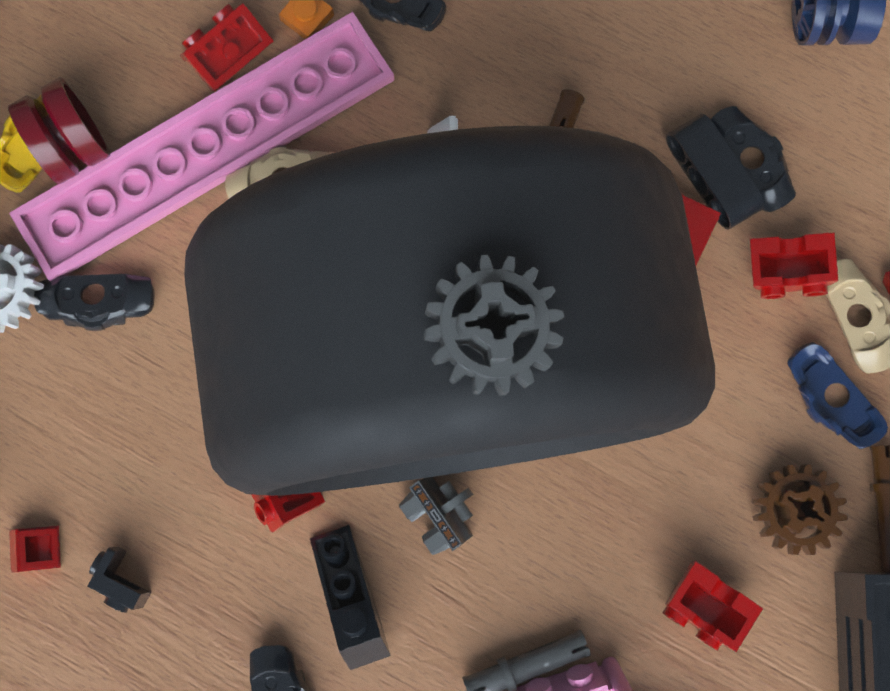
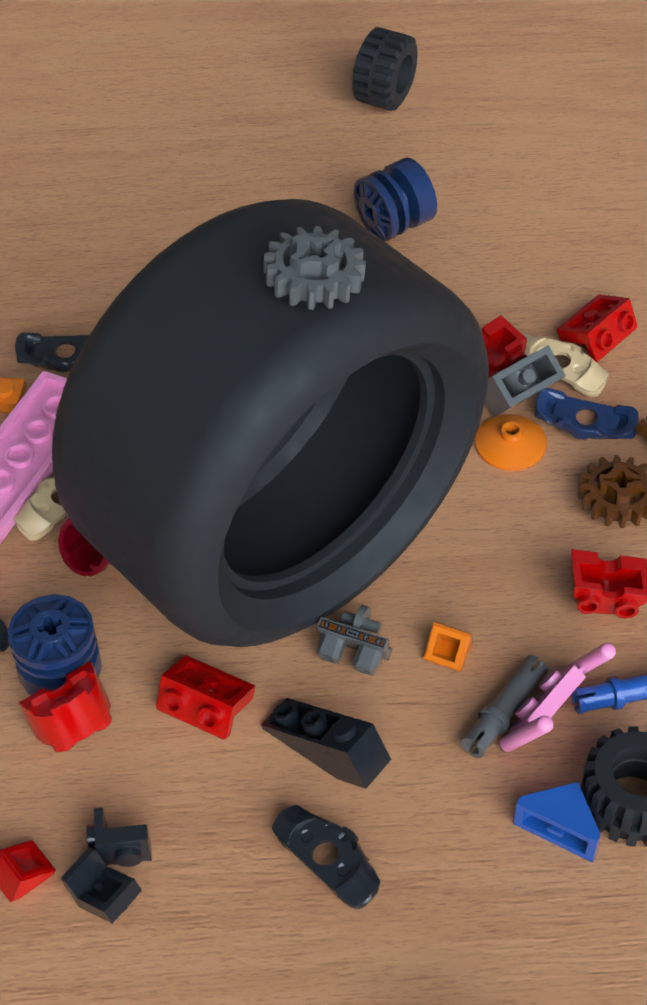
camera: 30 degrees left, 30 degrees down
(78, 619) = (99, 887): none -> black bracket
(141, 358) = (52, 640): none -> dark blue wheel
(154, 433) = (70, 711): none -> red cylinder
(520, 571) = (448, 646): none -> orange slope
(734, 391) = (510, 442): none -> orange dish
(798, 323) = (522, 380): none -> dark grey brick

